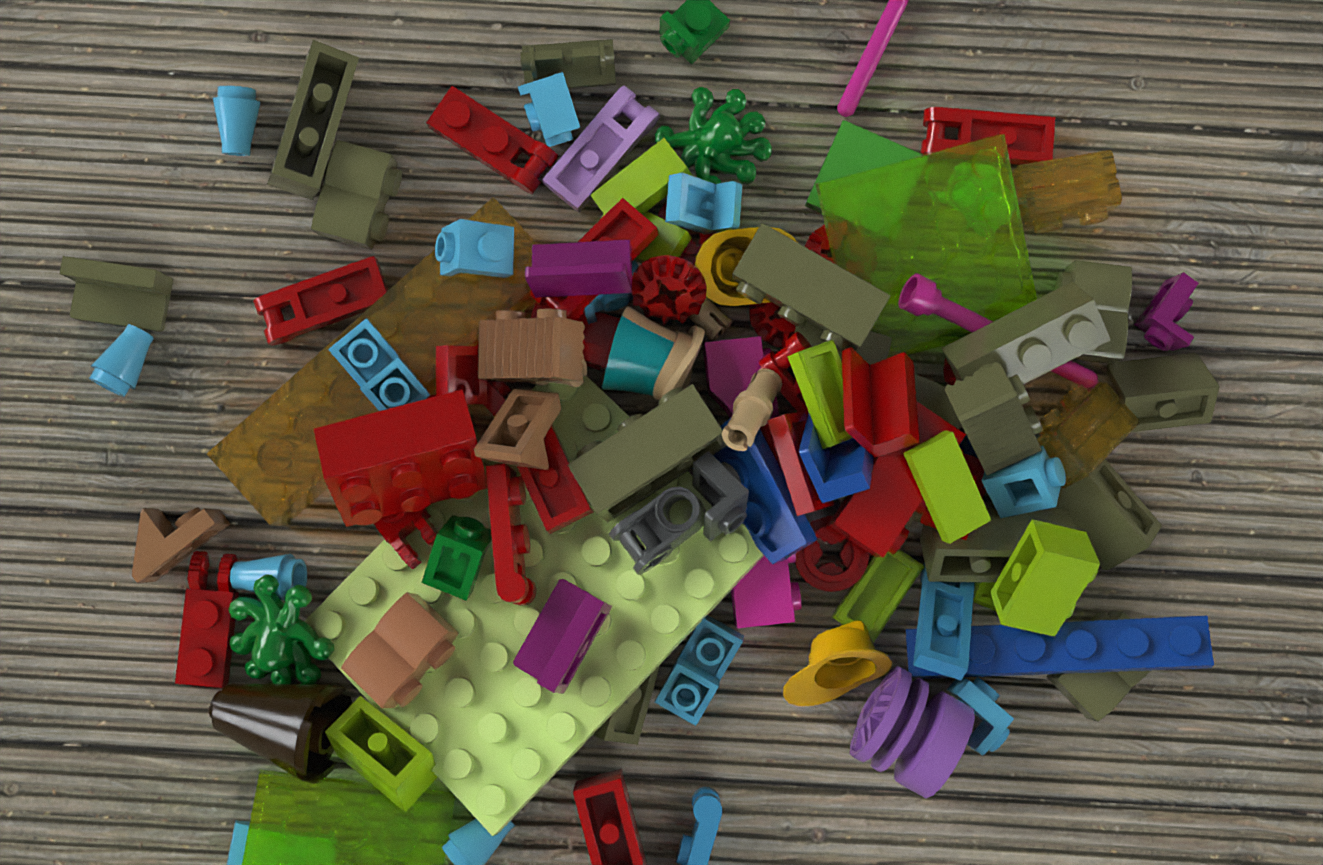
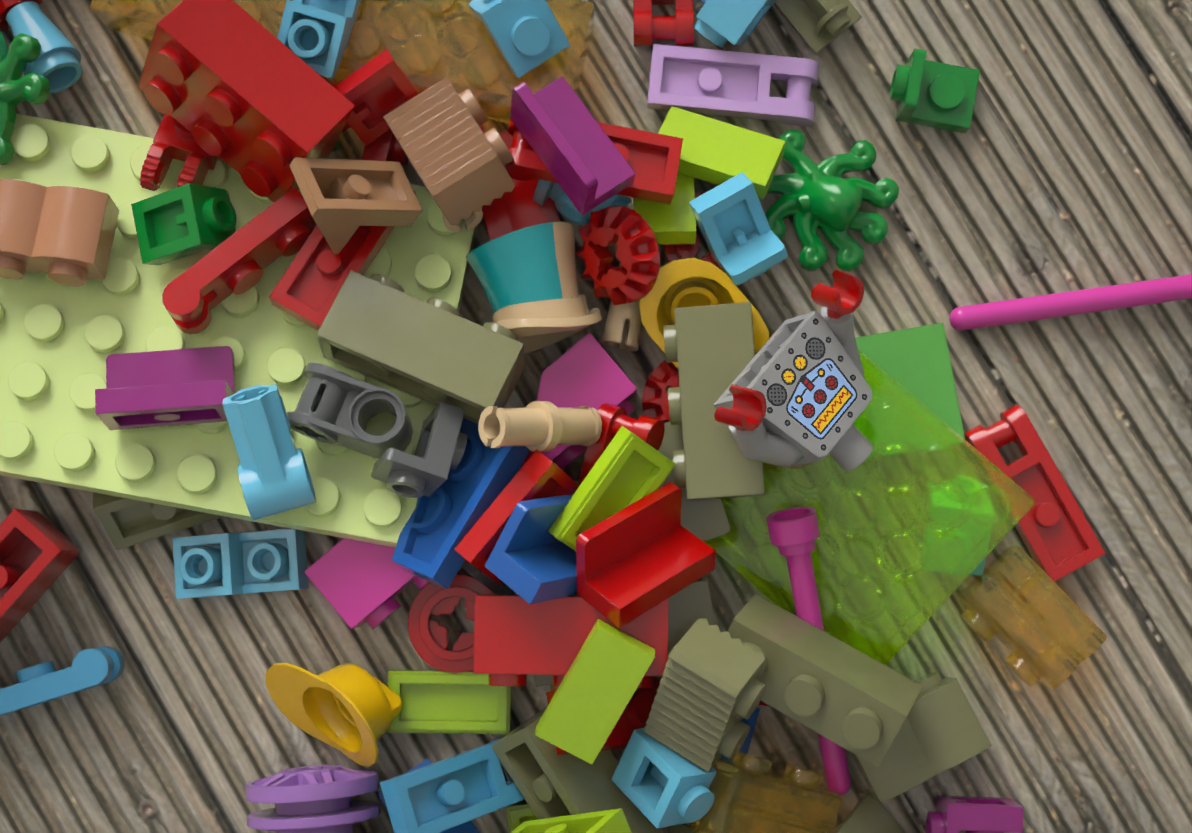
camera: 65 degrees right, 0 degrees up
(661, 599) = (271, 467): none -> medium azure piece
(841, 222) = (804, 387): none -> torso

